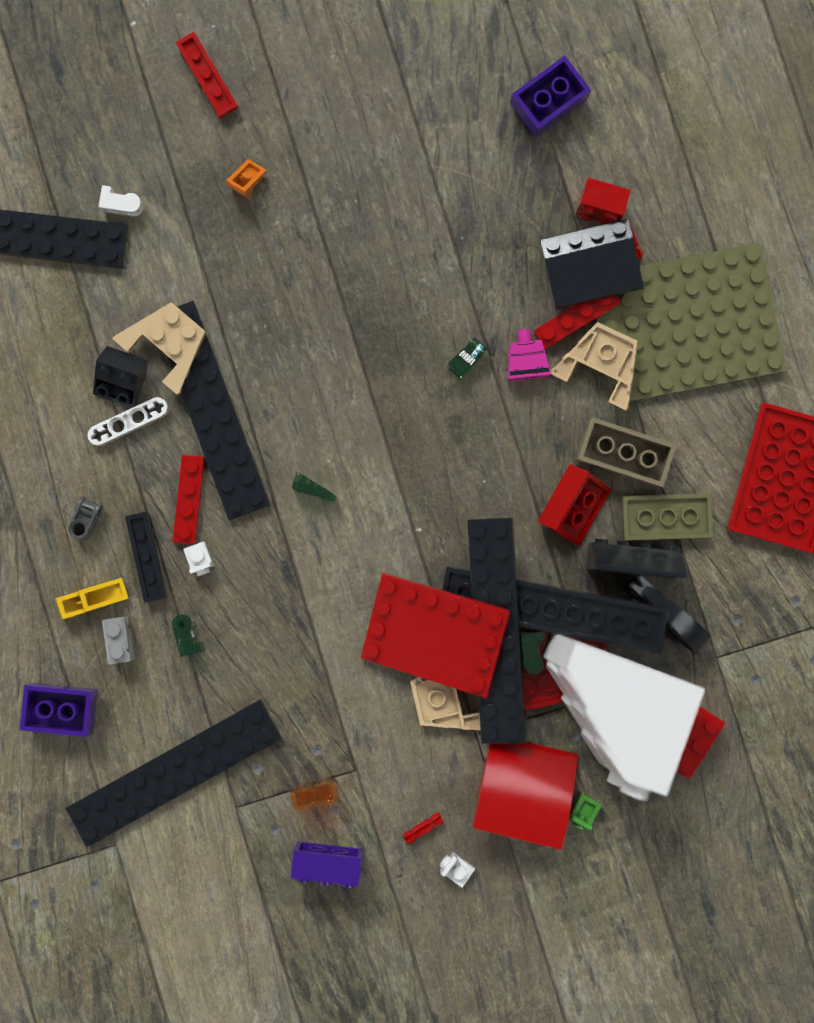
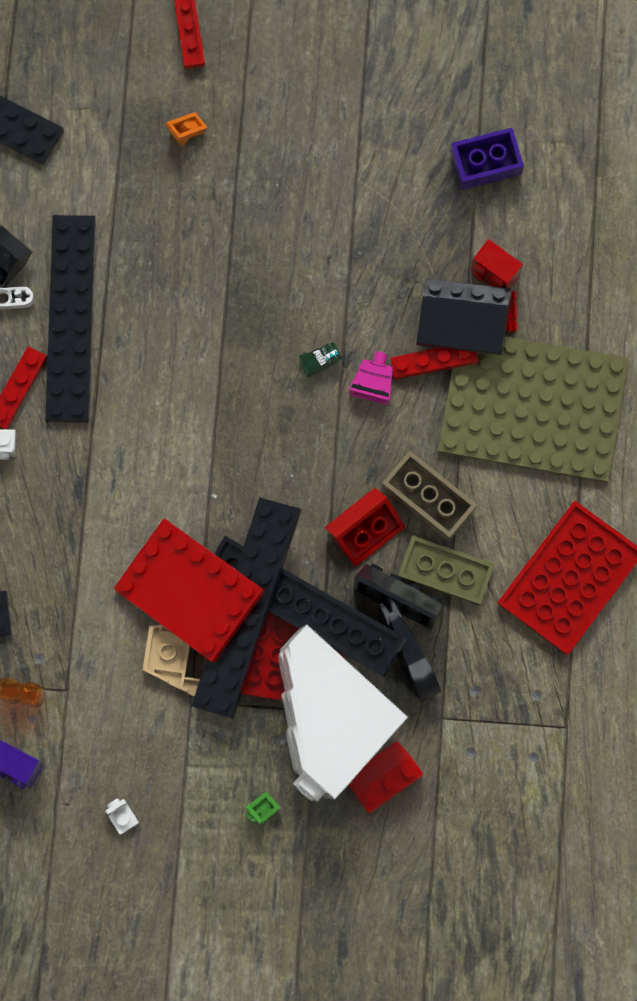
camera: 20 degrees right, 10 degrees down
(120, 204) = (64, 108): white leg -> none
(173, 334) = (64, 238): tan wing -> none
(307, 486) = (128, 417): clear green slope -> none
(423, 828) = (106, 766): red axle -> none
(526, 792) = (214, 765): red slope -> none
(530, 650) = (267, 646): clear green leg -> none
(607, 353) = (447, 401): tan wing -> none

